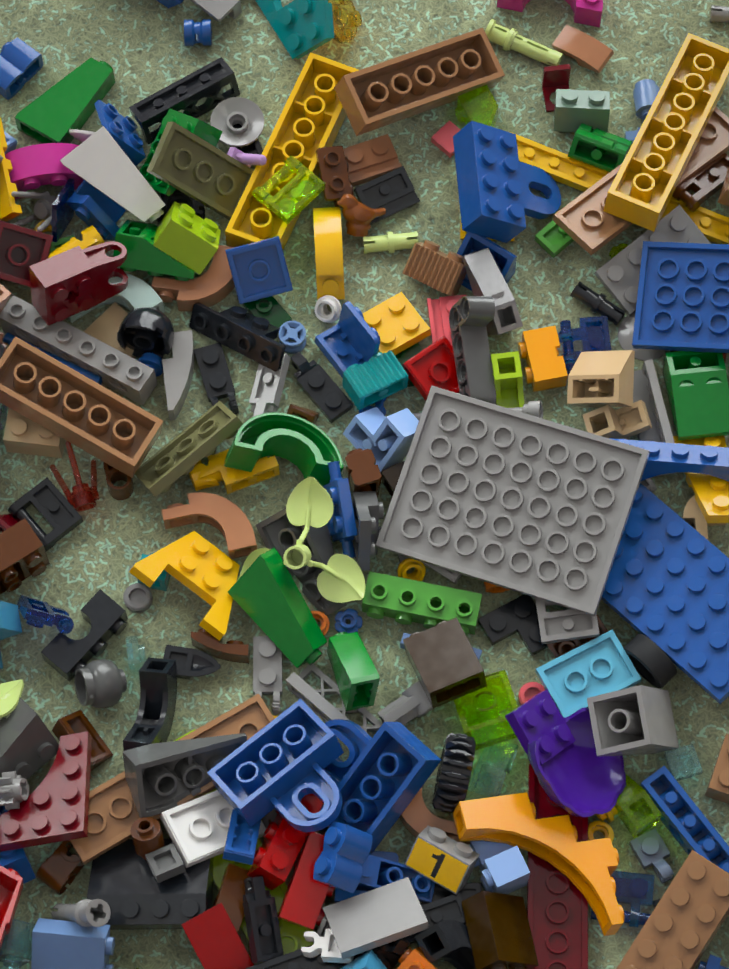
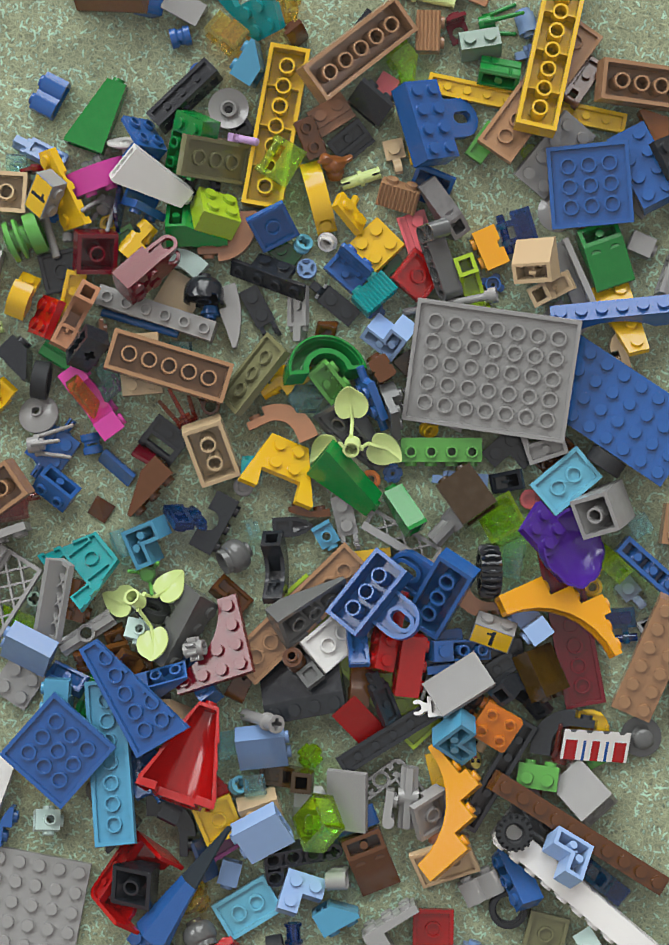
camera: 10 degrees left, 20 degrees up
(103, 533) = (211, 450): none -> tan brick
(232, 672) = (324, 527): none -> dark azure brick
(250, 495) = (305, 398): none -> clear light blue brick
(260, 39) = (227, 33): none -> clear yellow brick
(276, 74) = (250, 64): none -> dark azure slope
(284, 471) = (327, 380): none -> bright green bracket
(294, 305) = (304, 239): none -> medium azure bush
(342, 857) = (429, 651): blue brick -> none
(345, 48) = (295, 33): none -> reddish brown slope
(365, 275) = (348, 212): none -> yellow plate
(425, 151) = (371, 103): none -> black slope
(442, 220) = (394, 153): none -> tan plate
(511, 658) = (507, 481): none -> black slope
(517, 86) = (428, 36): none -> medium nougat brick
(545, 398) = (495, 278): none -> blue plate
(598, 303) = (520, 196): black pin -> none
(602, 86) = (488, 20): none -> green plant

